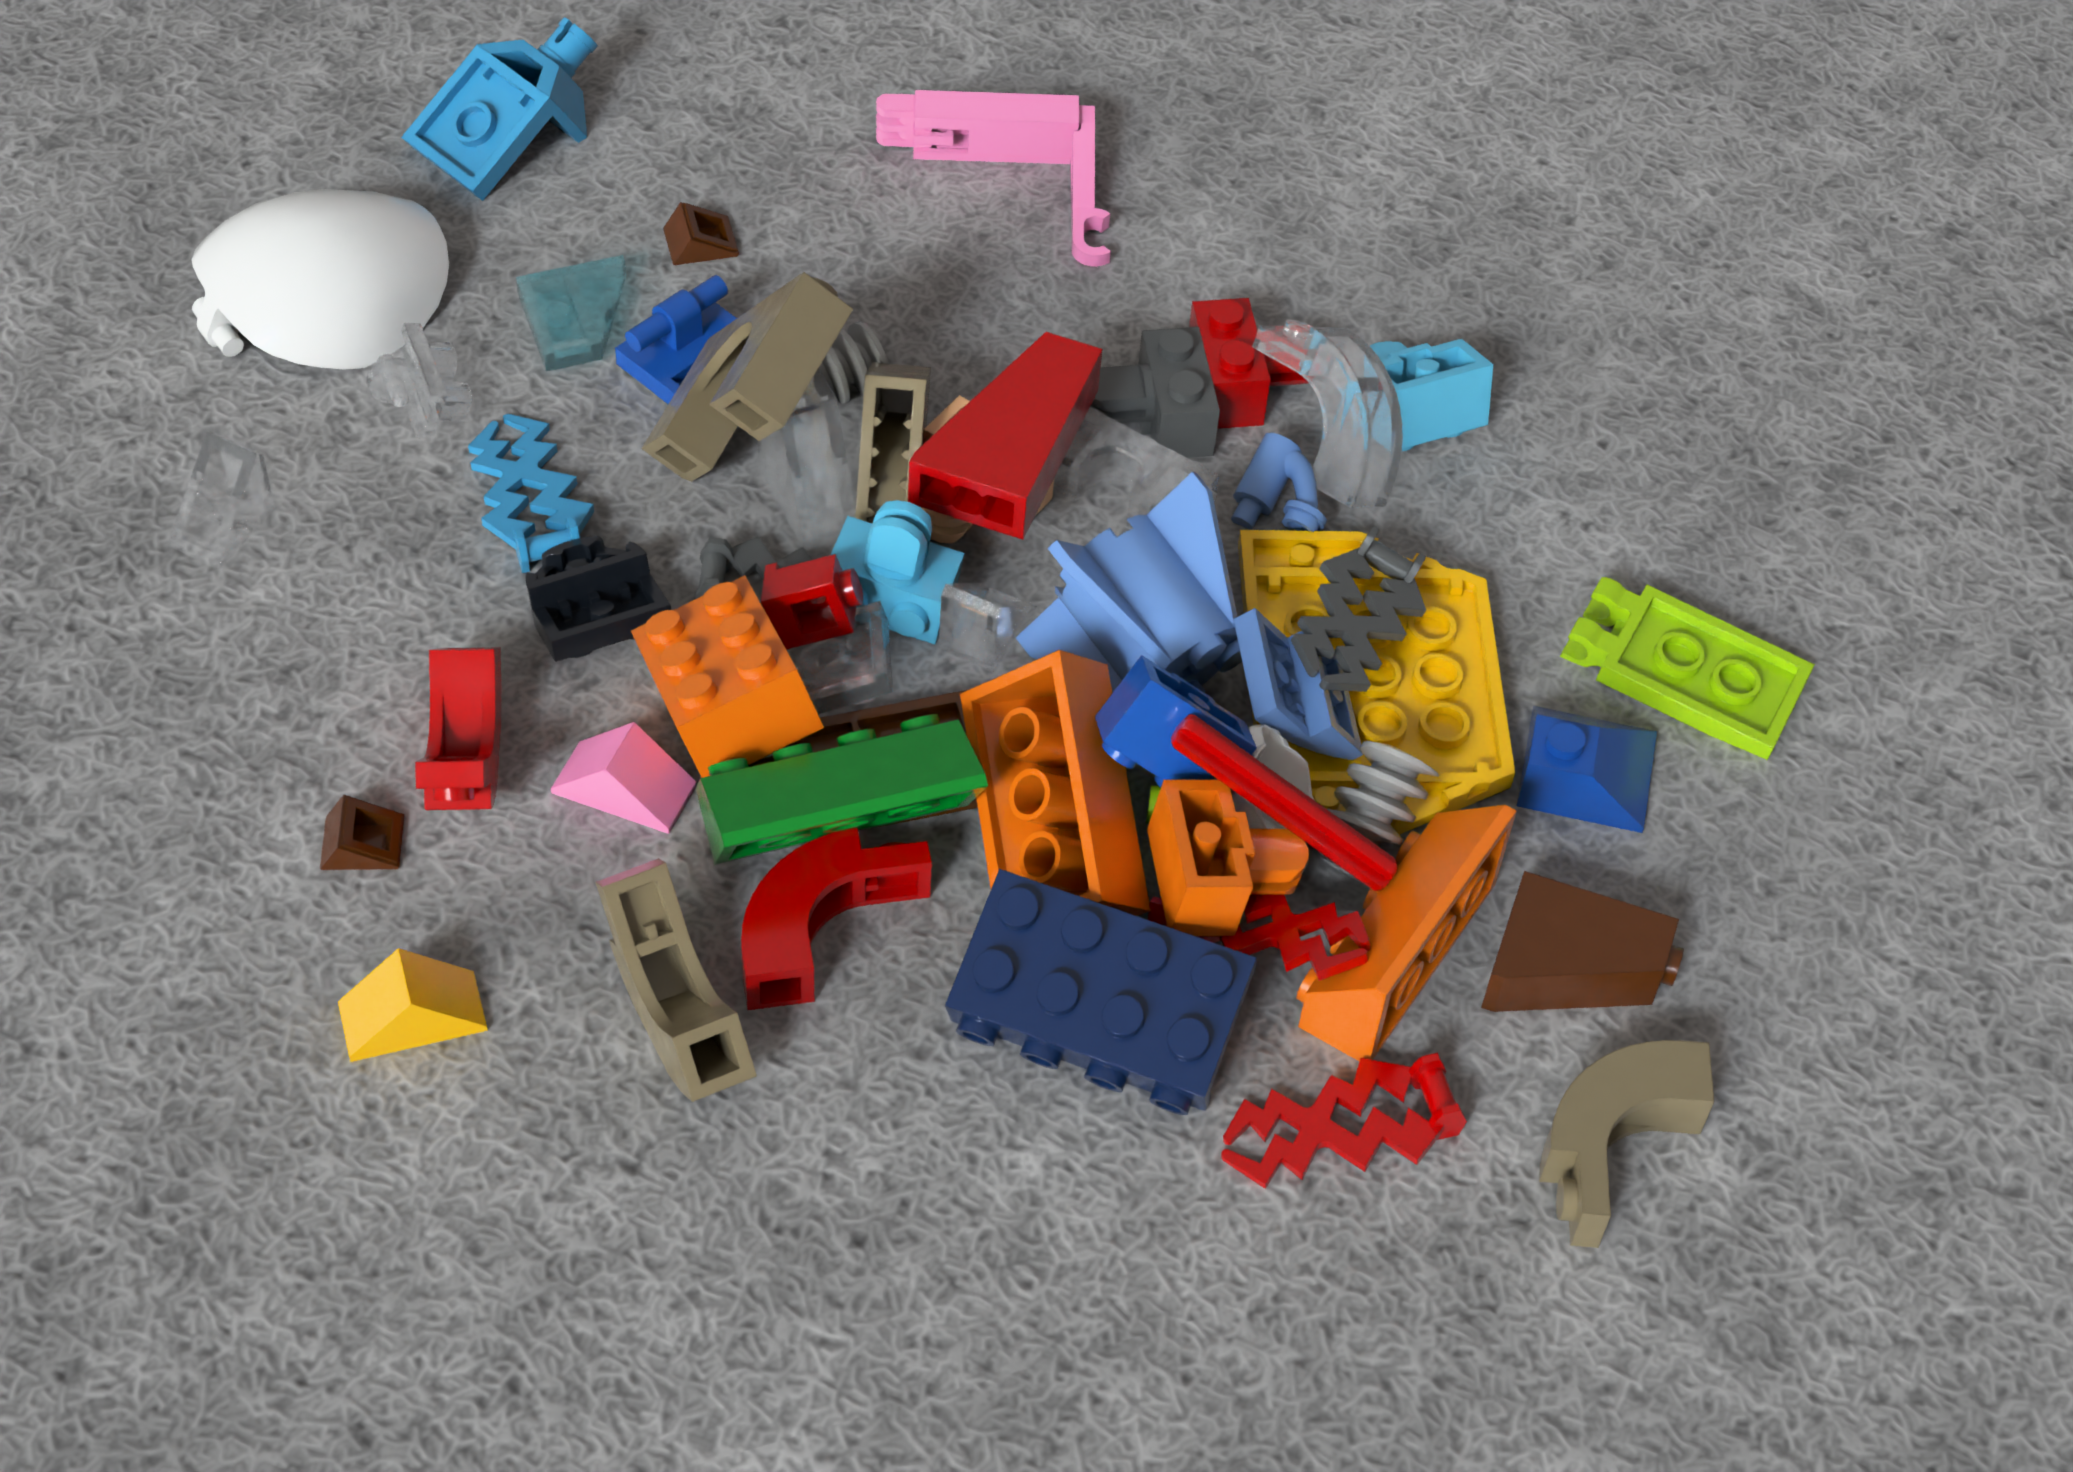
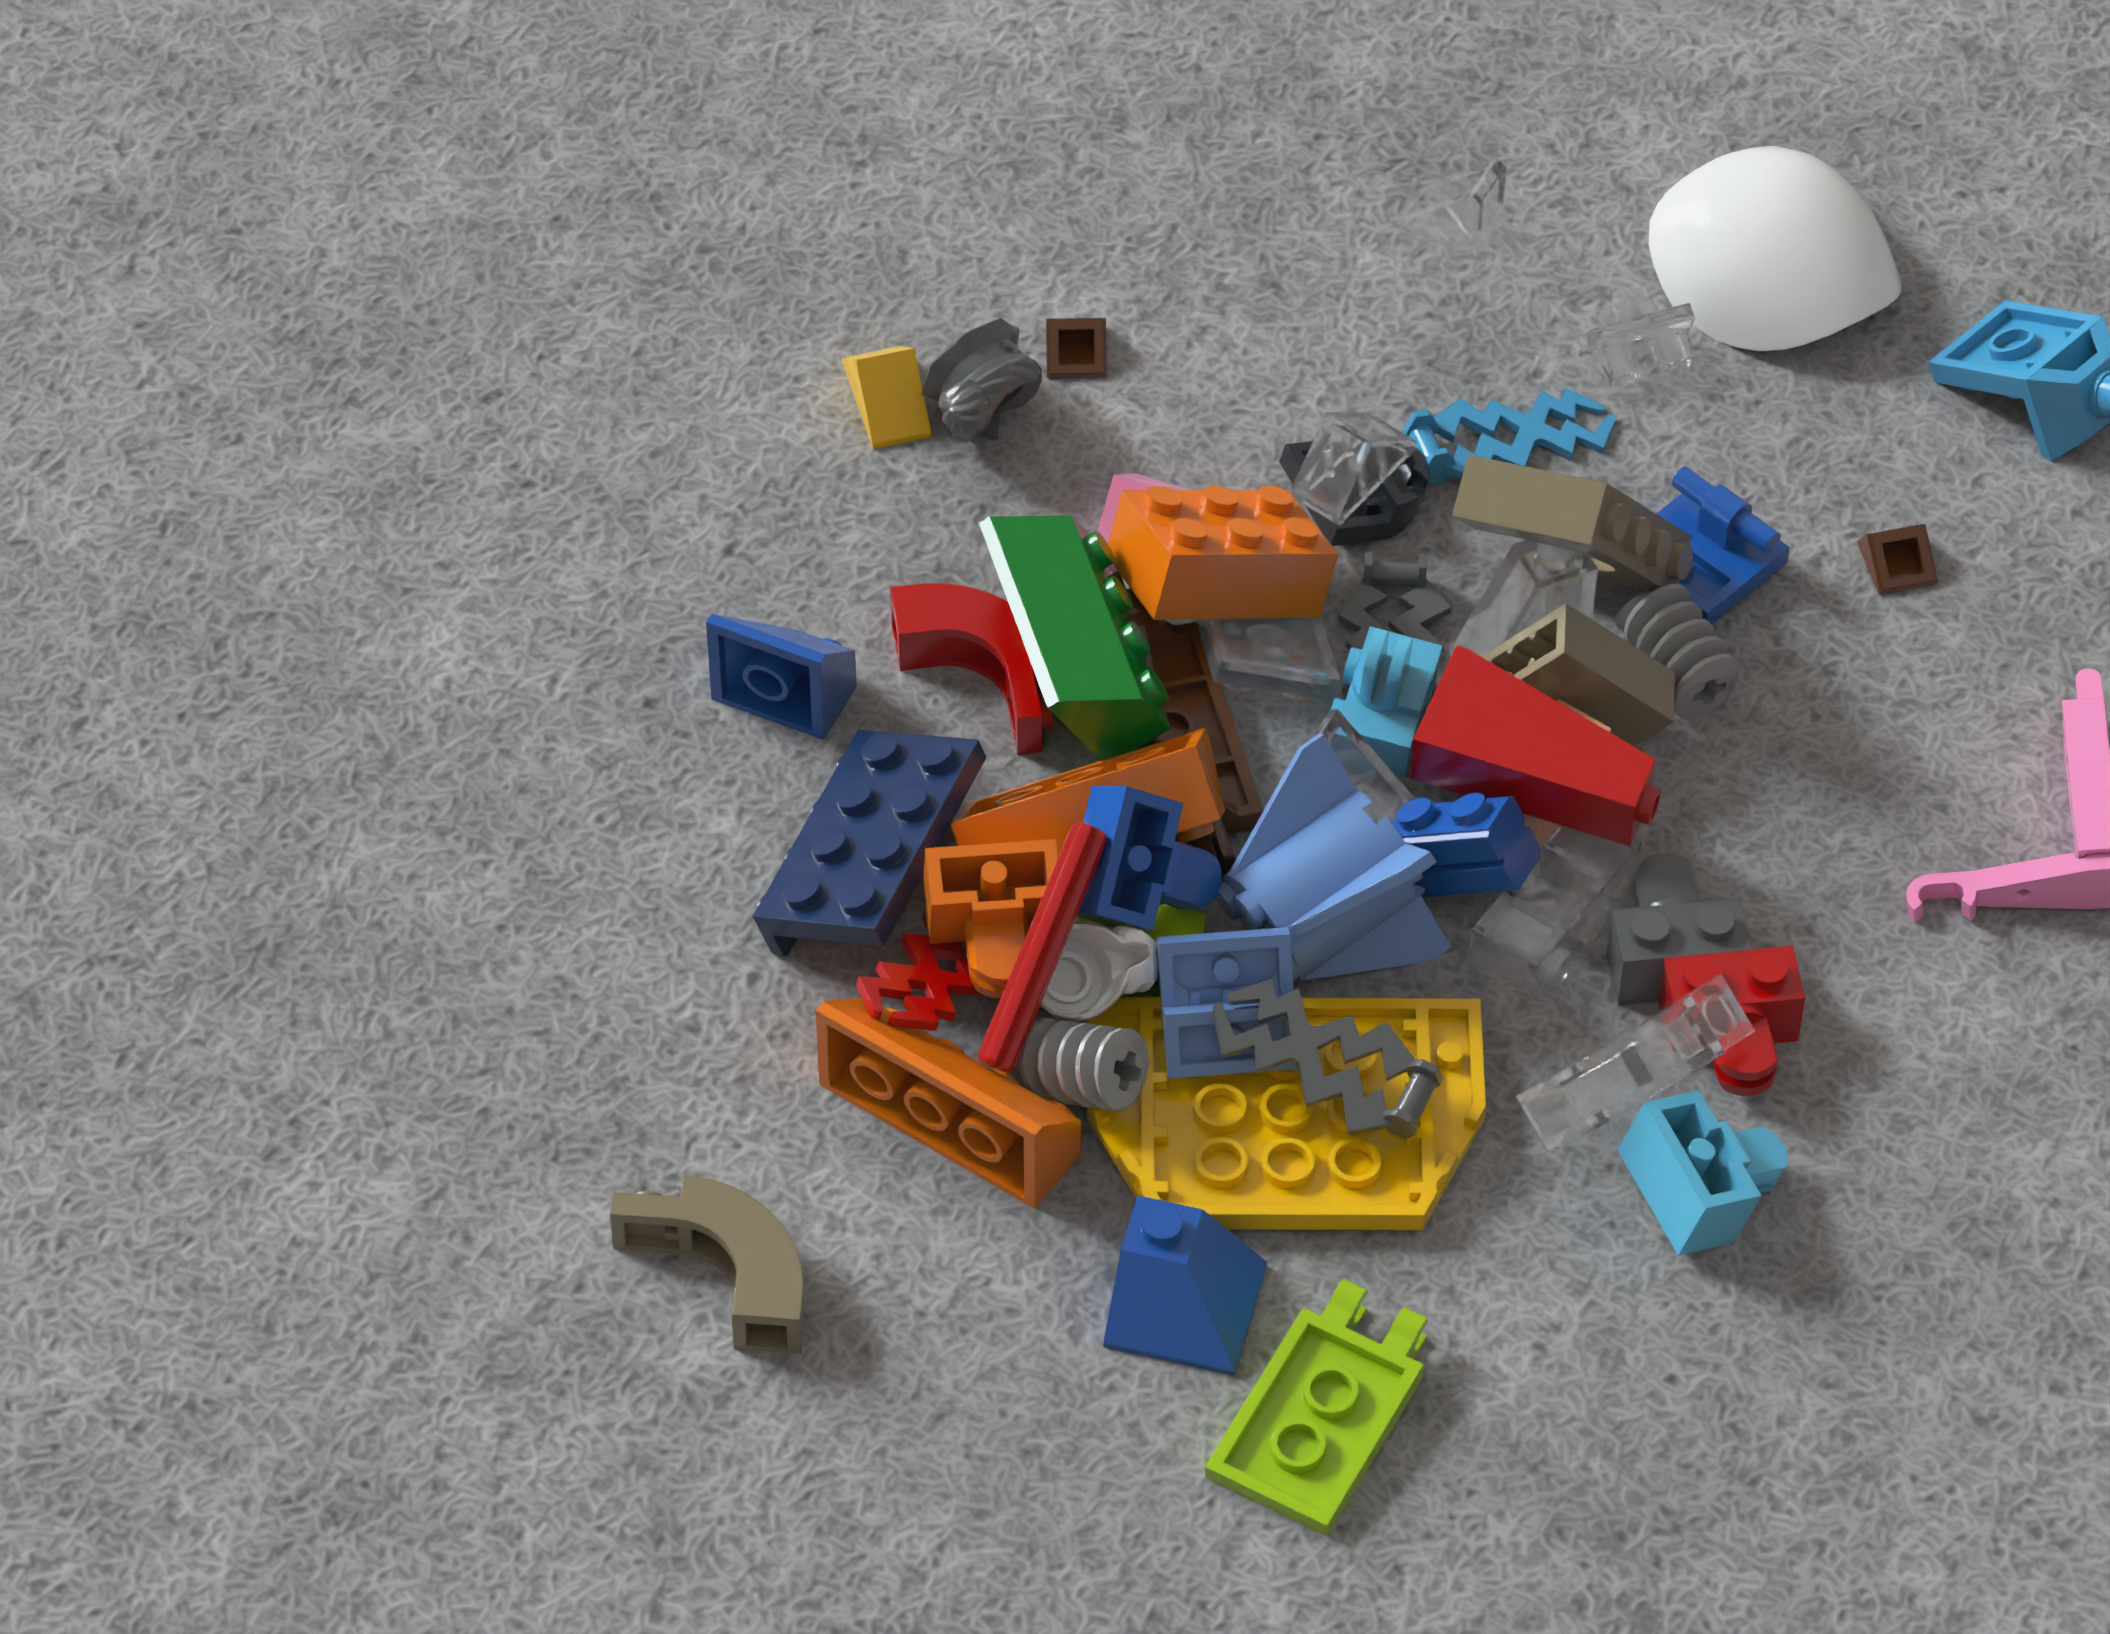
camera: 95 degrees right, 0 degrees up
(447, 892) = (981, 379): none -> dark grey piece
(463, 729) = (1173, 401): red arch -> none
(572, 310) = (1759, 452): clear light blue wing -> none
(603, 576) = (1349, 462): none -> clear slope
(680, 1010) = (916, 544): dark tan arch -> none
(811, 600) = (1328, 617): red brick -> none
(858, 1073) = (779, 673): none -> blue slope
(1089, 500) = (1475, 843): none -> blue brick
(1264, 480) = (1552, 1038): medium blue plant -> none
(1319, 1131) = (729, 1096): red piece -> none
(1579, 951) = (936, 1244): reddish brown slope -> none

